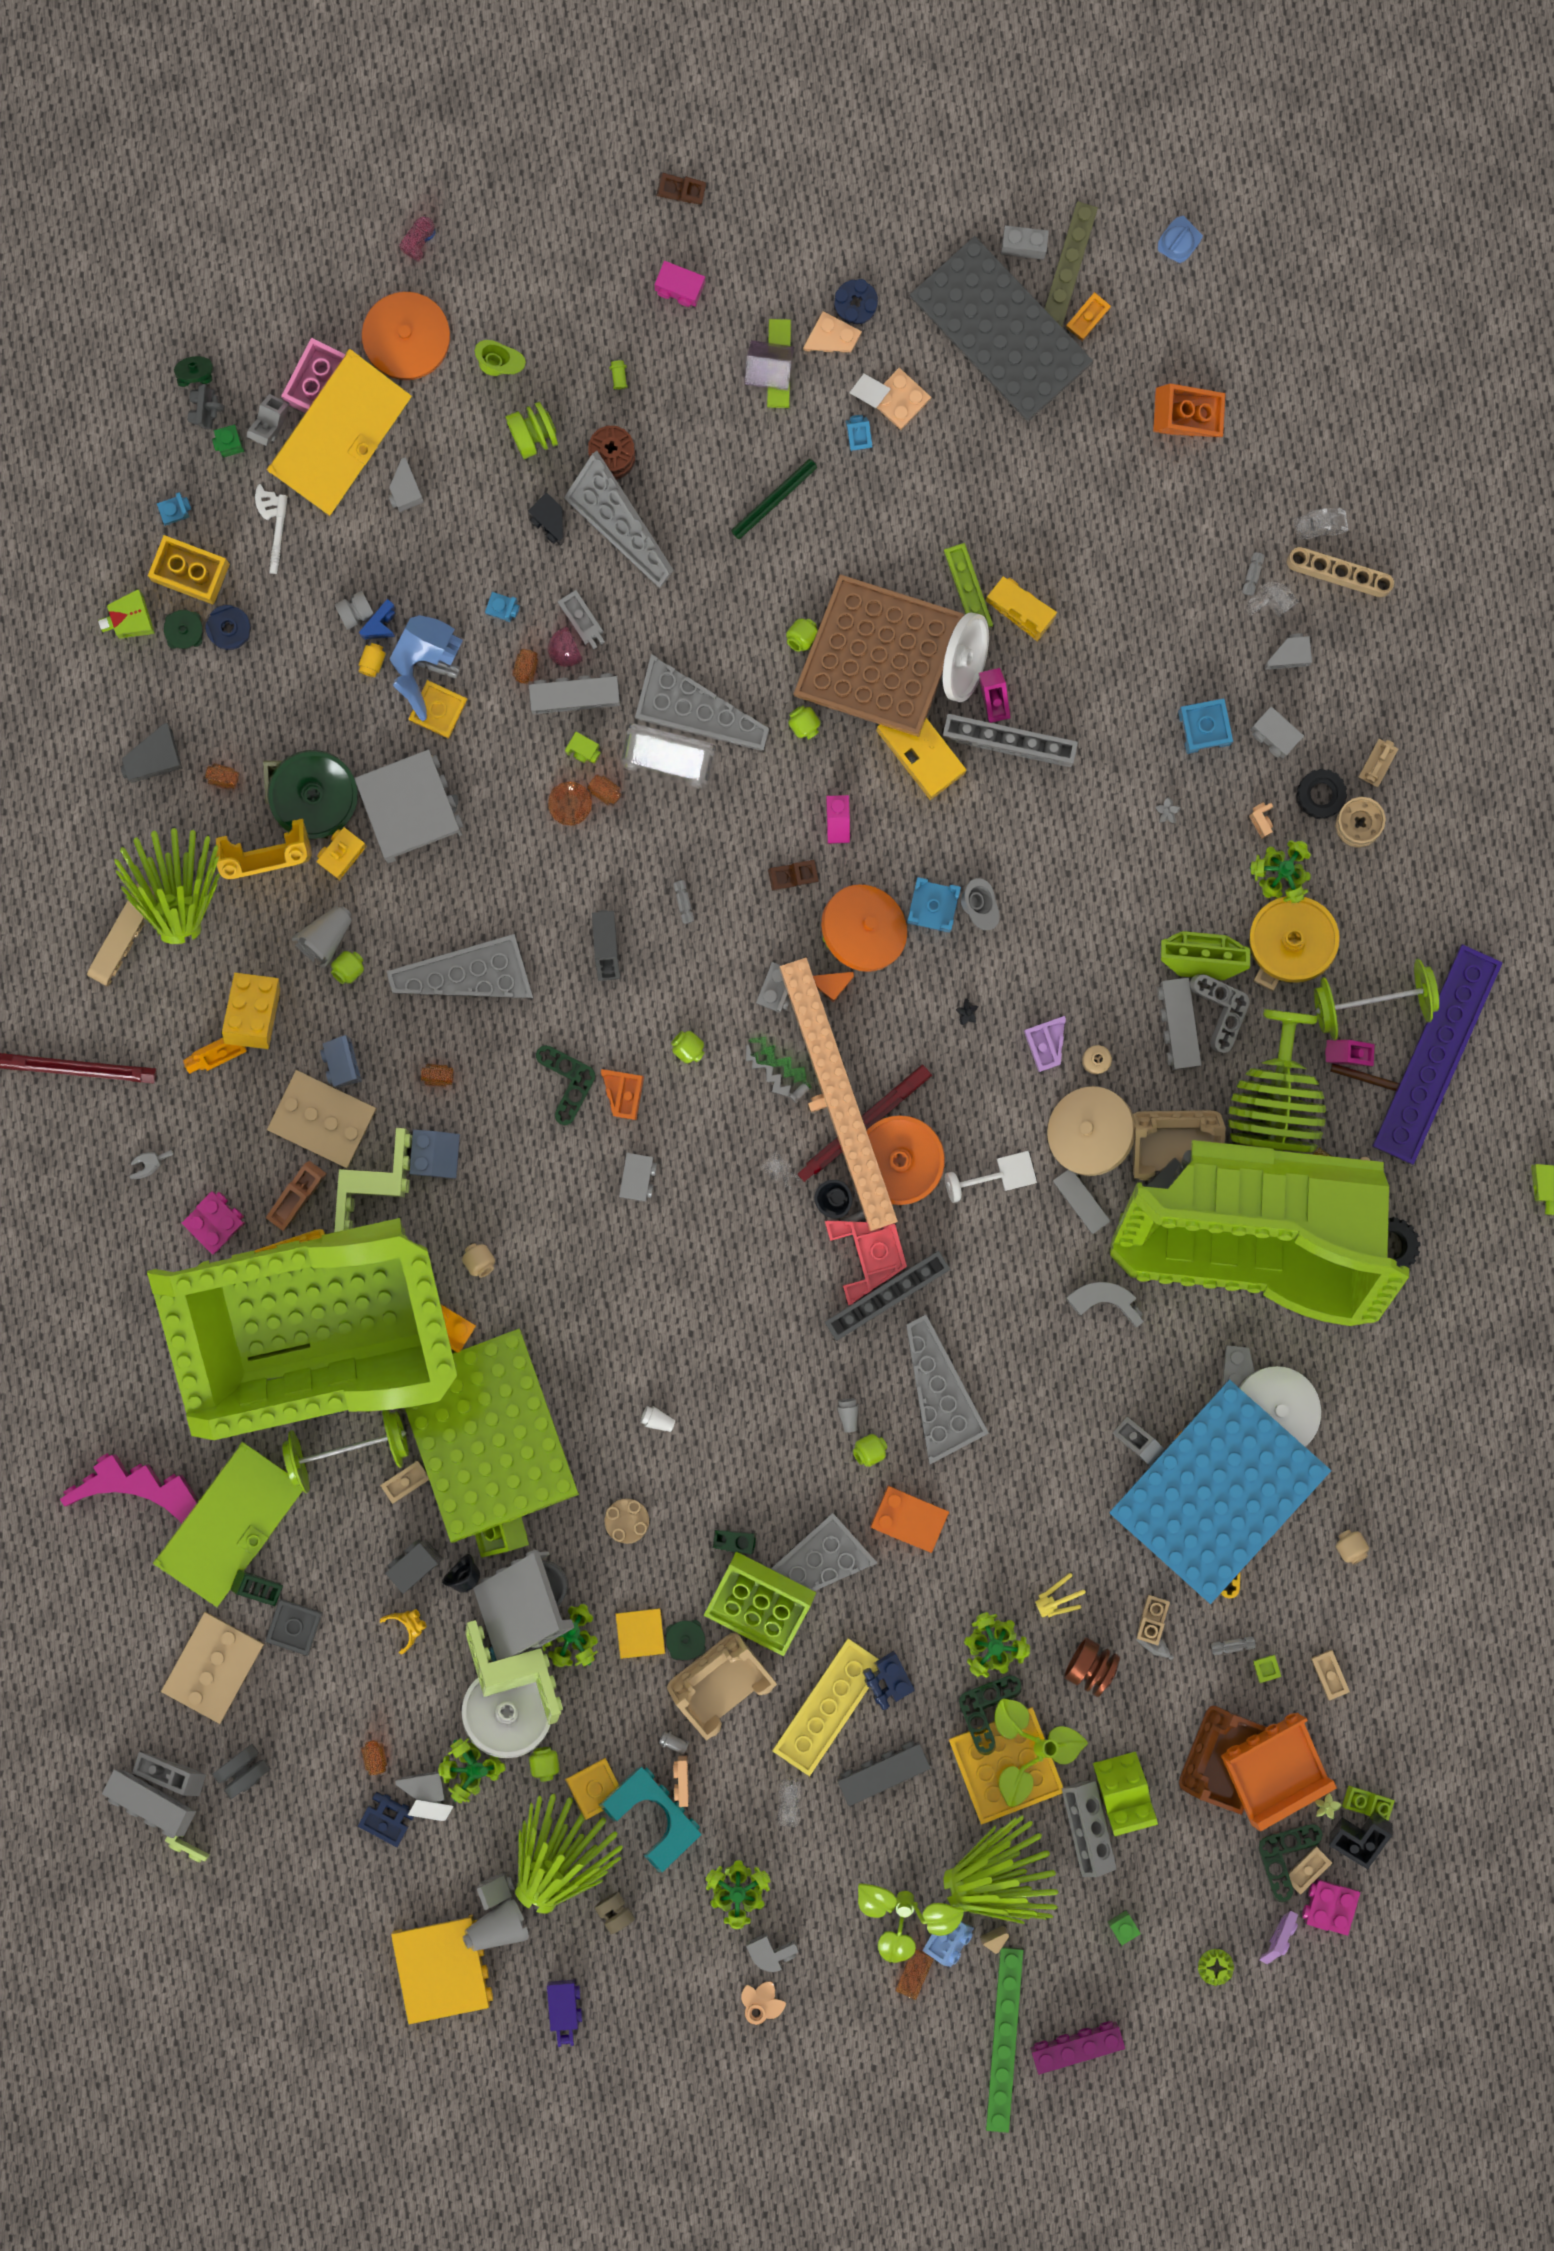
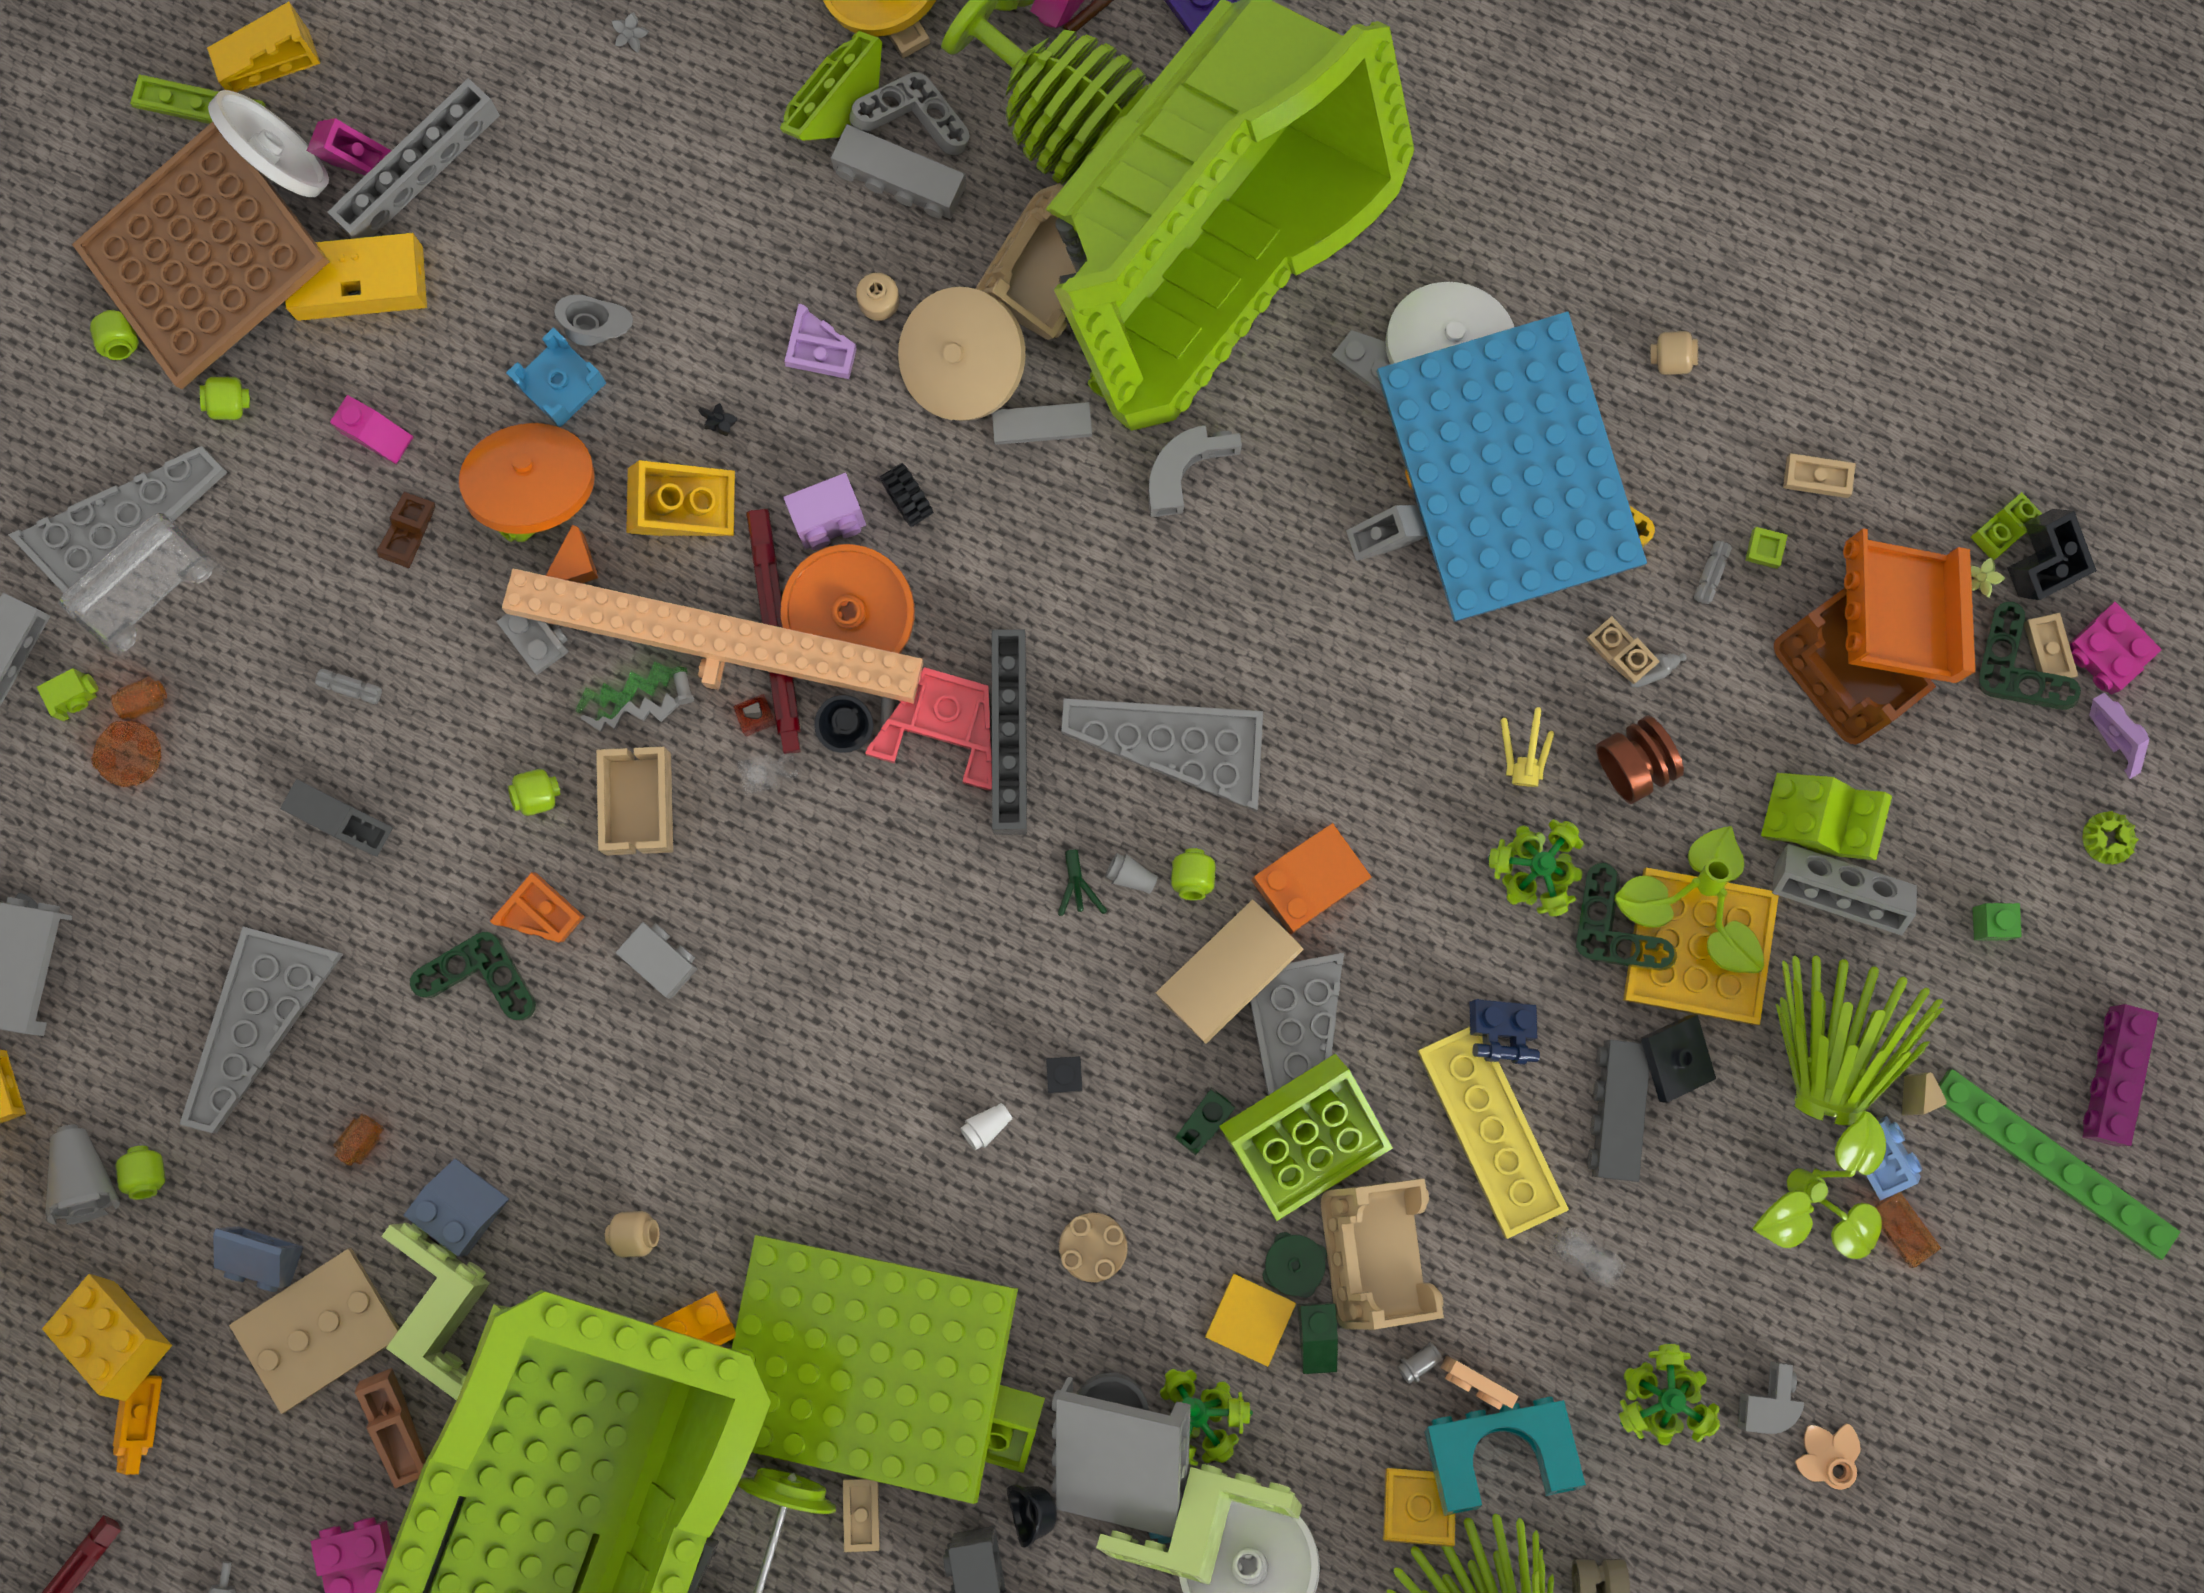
camera: 55 degrees left, 5 degrees down
(544, 1763) = (1346, 1556): lime head -> none
(653, 1677) = (1318, 1337): none -> dark green slope
(712, 1446) = (1064, 1075): none -> black brick
(717, 1108) = (634, 801): none -> tan piece
(809, 1142) = (754, 715): none -> clear red slope
(824, 1386) = (1077, 882): none -> dark green plant
(826, 1504) = (1229, 971): none -> tan slope
(906, 1021) = (679, 500): none -> yellow slope
(932, 1789) = (1678, 1058): none -> black plate
(949, 1111) = (825, 512): none -> lavender brick
(988, 1151) = (906, 494): none -> black tyre
(1014, 1170) = (953, 482): white piece -> none

